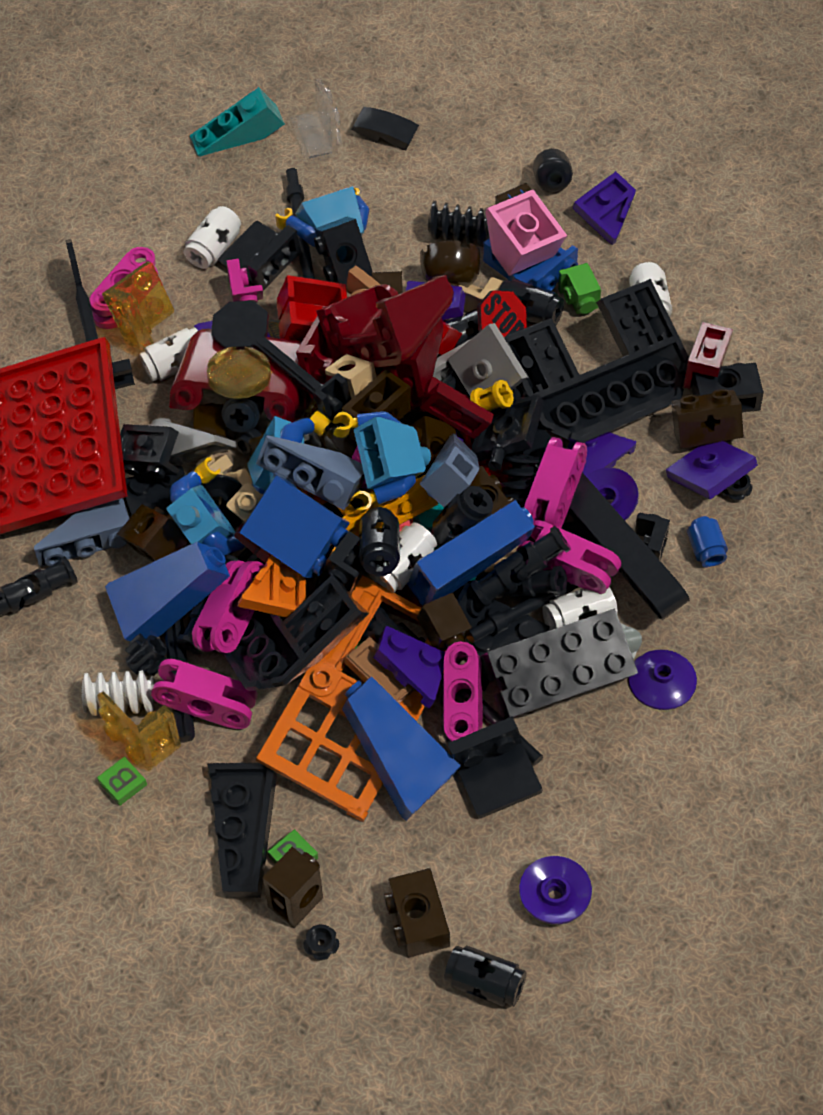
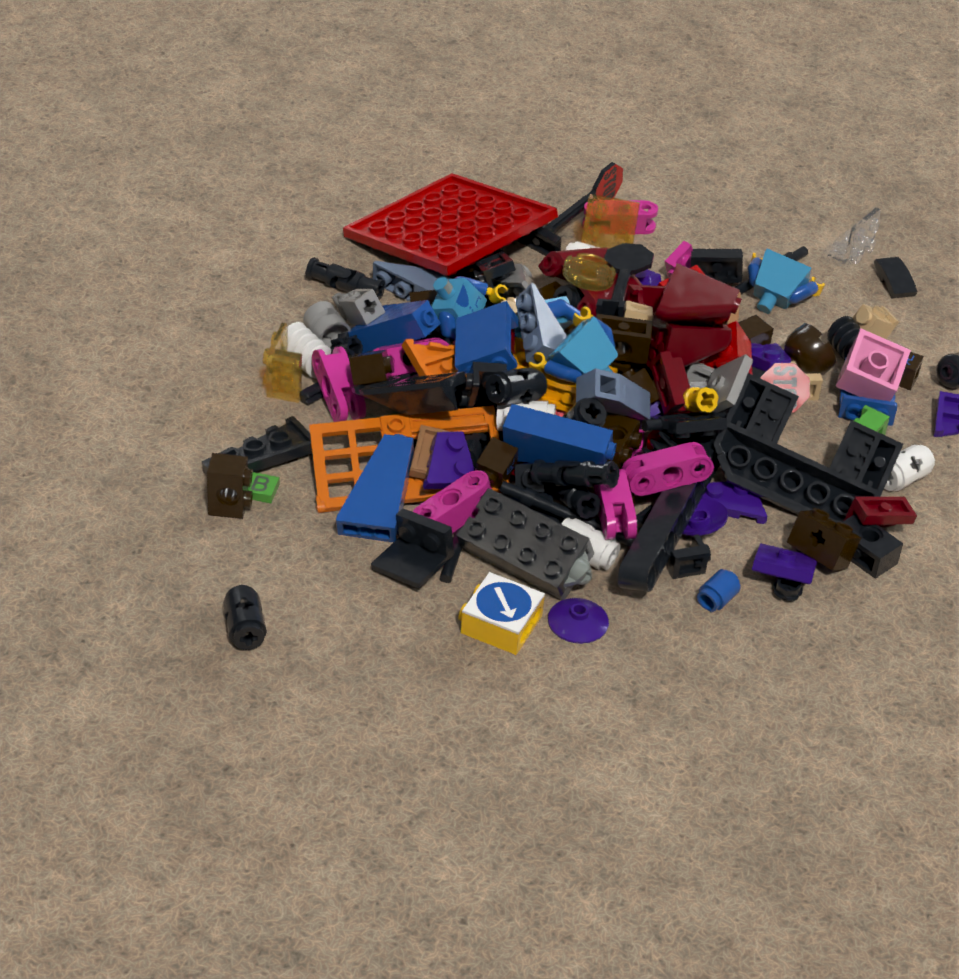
camera: 50 degrees right, 15 degrees down
(94, 651) = (325, 321): none -> light grey wheel
(105, 606) = (359, 306): none -> light grey piece
(122, 781) = (246, 385): bright green tile -> none
(212, 237) = (719, 234): white piece -> none
(232, 651) = (371, 367): none -> dark brown brick
(242, 123) = (819, 210): teal slope -> none
(319, 933) = (205, 527): black plate -> none
(333, 236) = (768, 284): black brick -> none
(417, 892) = (266, 562): dark brown brick -> none
(444, 185) = (875, 320): none -> tan brick
(545, 304) = (825, 408): black piece -> none
(559, 875) = (344, 626): dark purple dish -> none
(626, 739) = (501, 613): none -> piece

